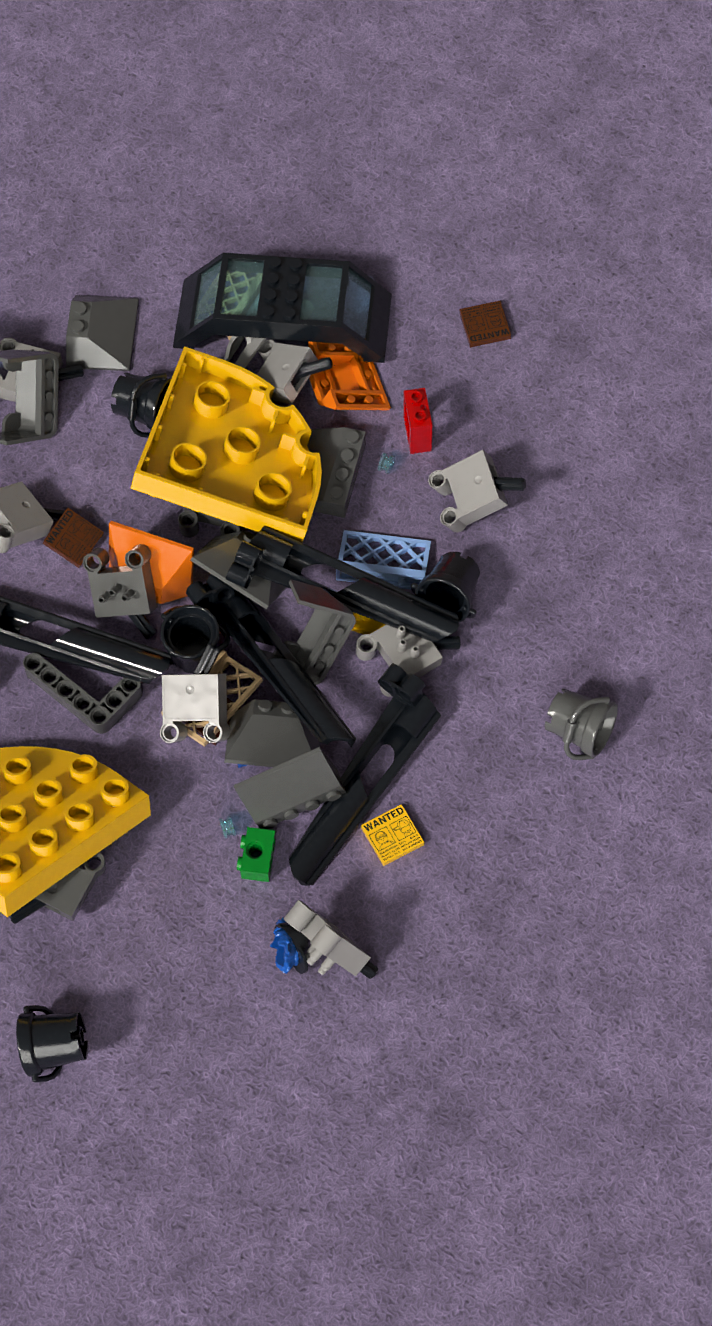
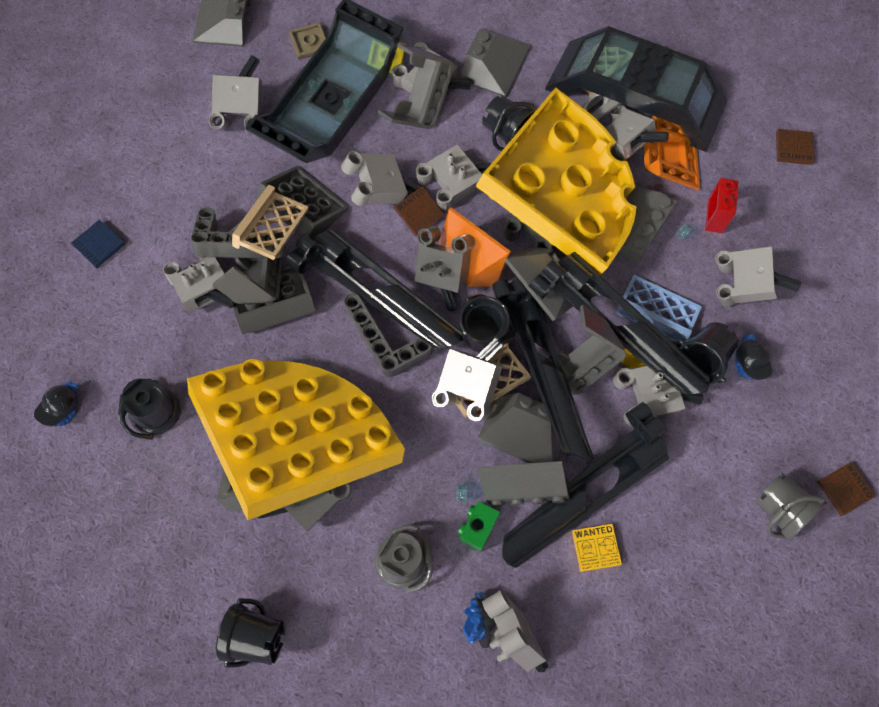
camera: 15 degrees right, 5 degrees up
(98, 481) = (453, 173): none -> light grey piece
(185, 914) = (404, 559): none -> dark grey piece
(502, 580) = (753, 359): none -> black hair
(642, 685) = (846, 489): none -> reddish brown tile

